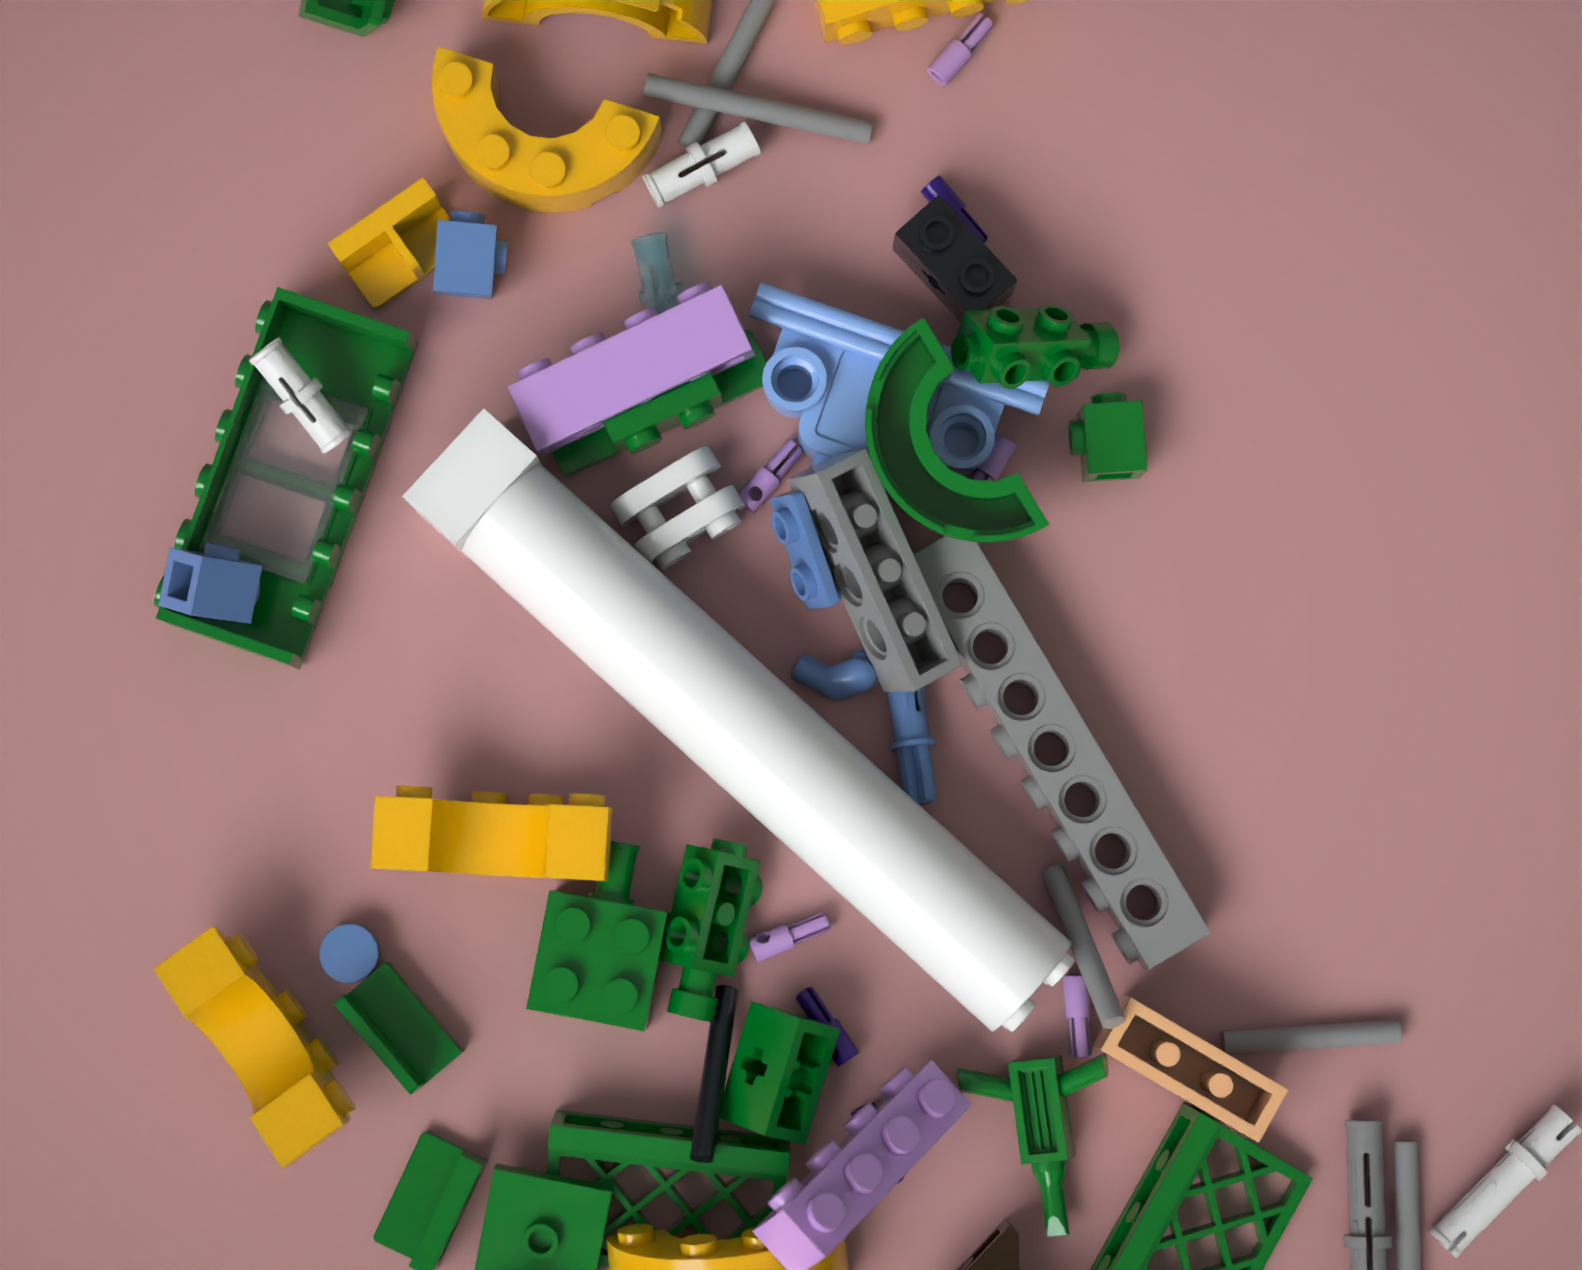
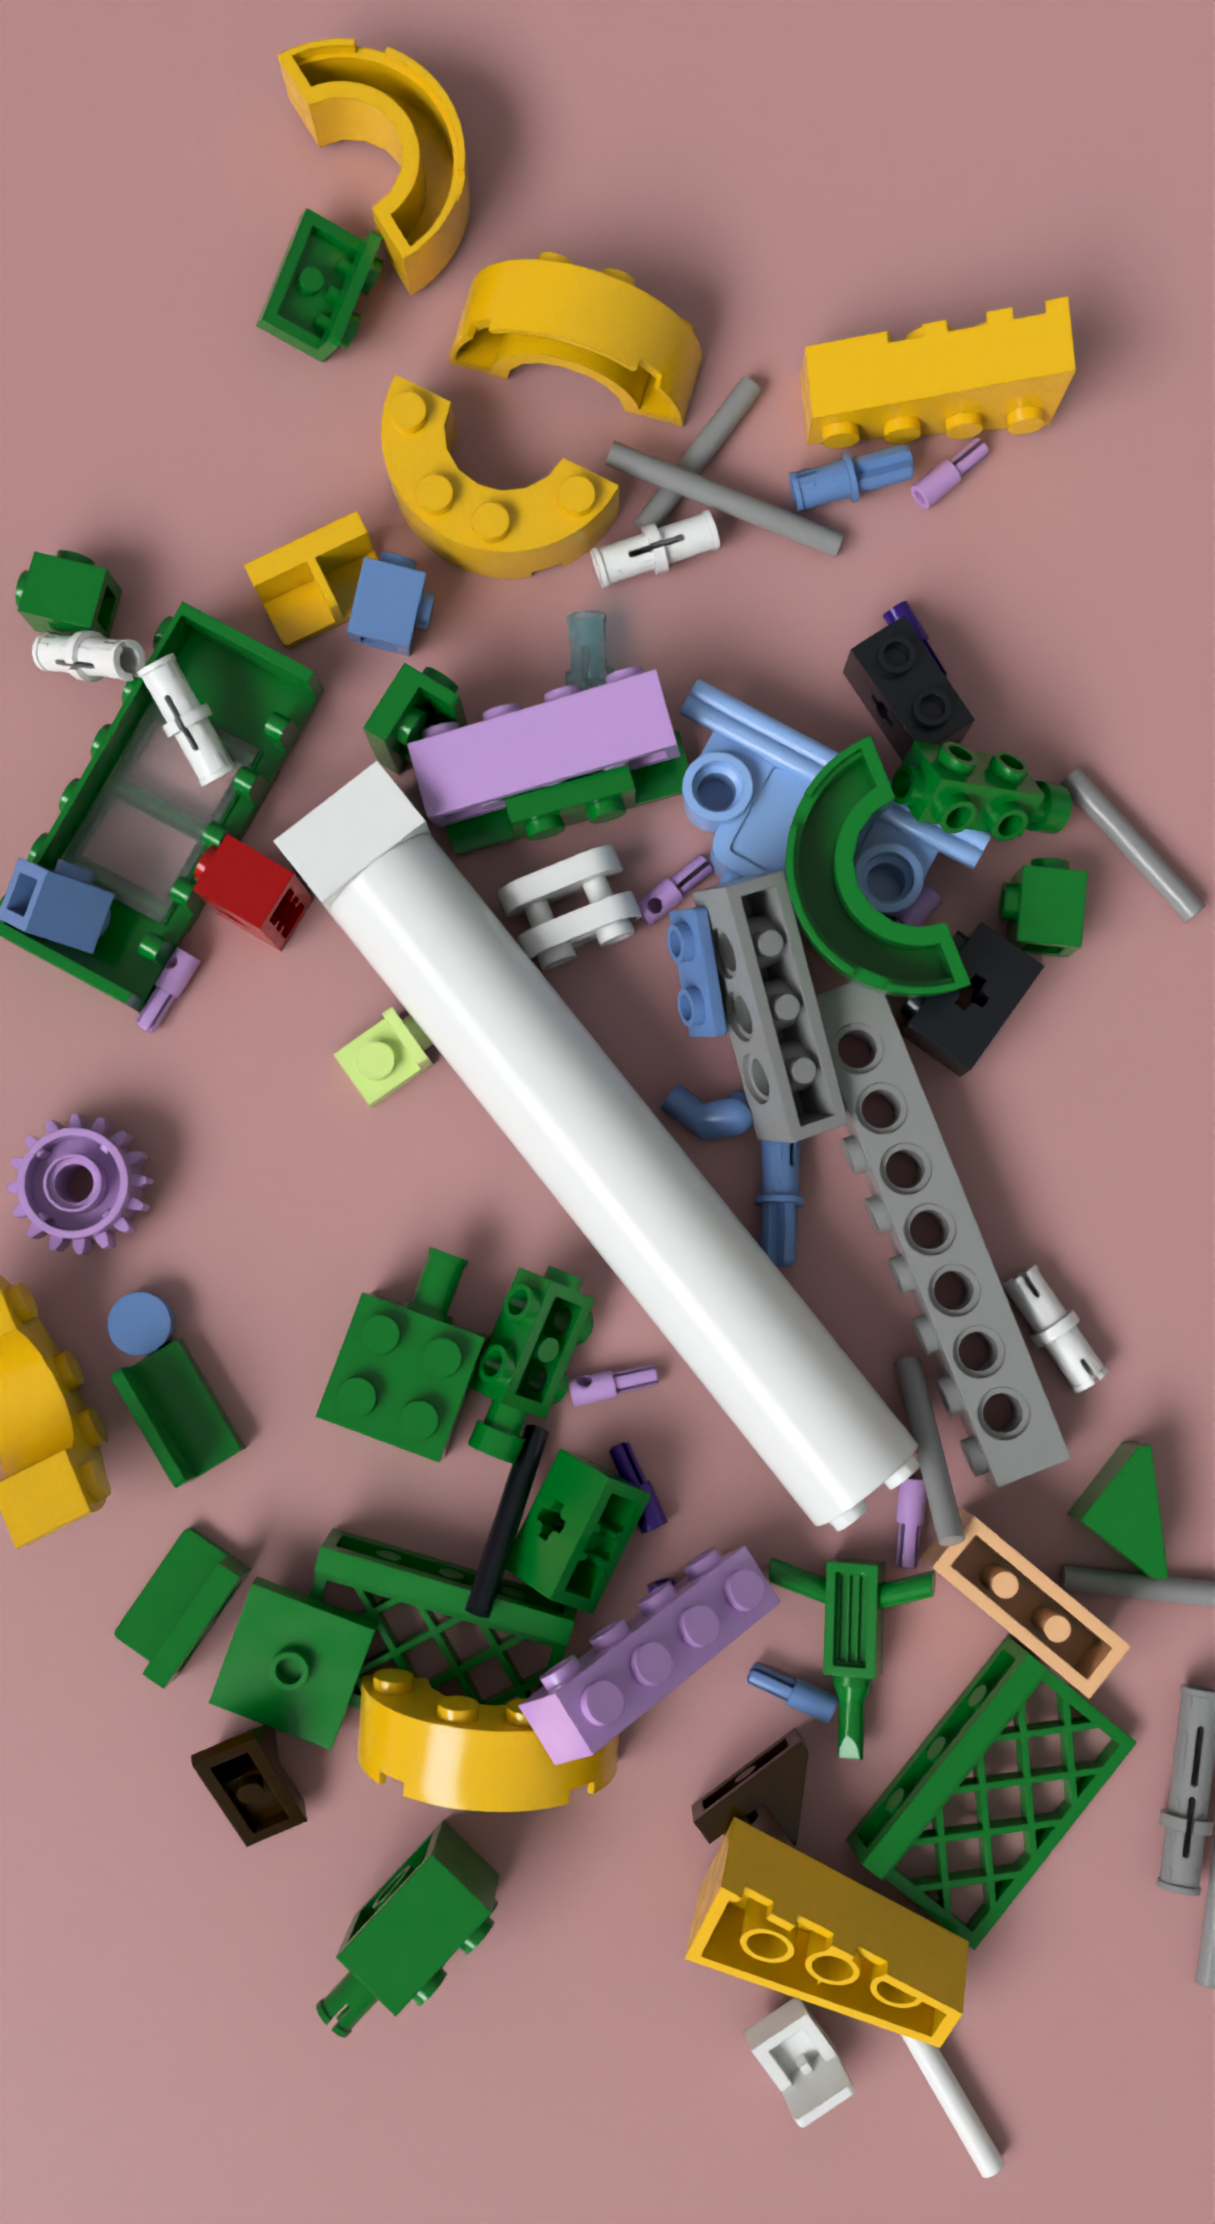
camera: 15 degrees right, 0 degrees up
(168, 297) = (67, 594): none -> green brick
(198, 349) = (88, 655): none -> white pin
(241, 829) = (46, 1176): none -> lavender gear
(321, 641) = (168, 987): none -> lavender pin
(386, 542) = (251, 891): none -> red brick
(493, 836) = (311, 1222): yellow brick -> none
(500, 357) = (407, 709): none -> green bracket
(532, 672) = (385, 1056): none -> yellowish green bracket
(869, 69) = (850, 477): none -> medium blue axle
(1001, 1186) = (797, 1693): none -> medium blue pin
(1080, 509) = (1000, 977): none -> black brick
(1180, 818) = (1055, 1328): none -> white pin
(1181, 366) = (1132, 845): none -> light grey bar
(1267, 971) = (1124, 1509): none -> green slope

